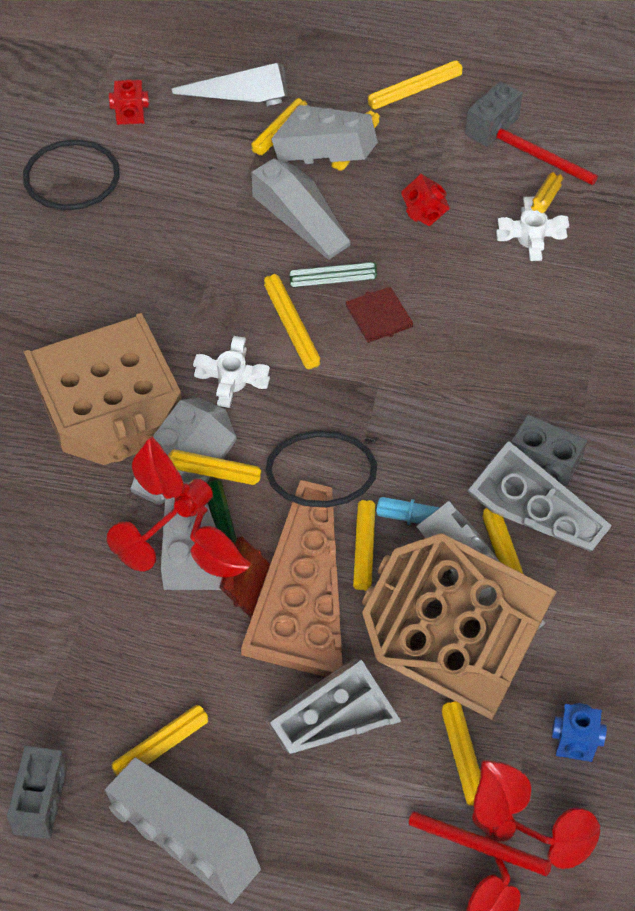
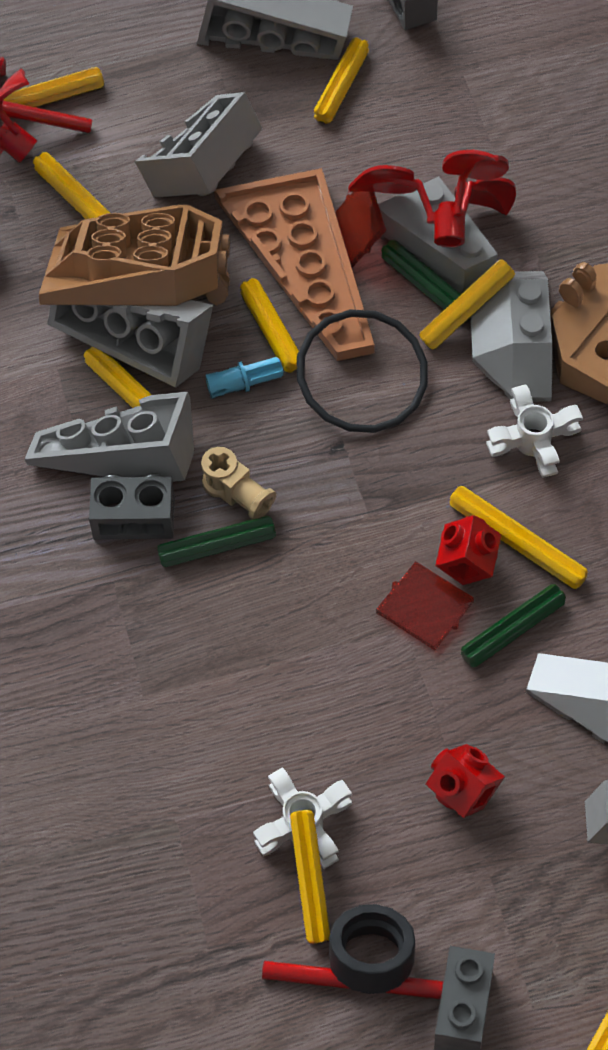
camera: 155 degrees right, 5 degrees up
(333, 314) = (468, 550): none -> red brick
(426, 876) = (58, 88): none -> yellow axle
(465, 434) = (231, 481): none -> tan connector
(493, 408) = (216, 541): none -> dark green axle
(527, 133) = (371, 920): none -> black tyre

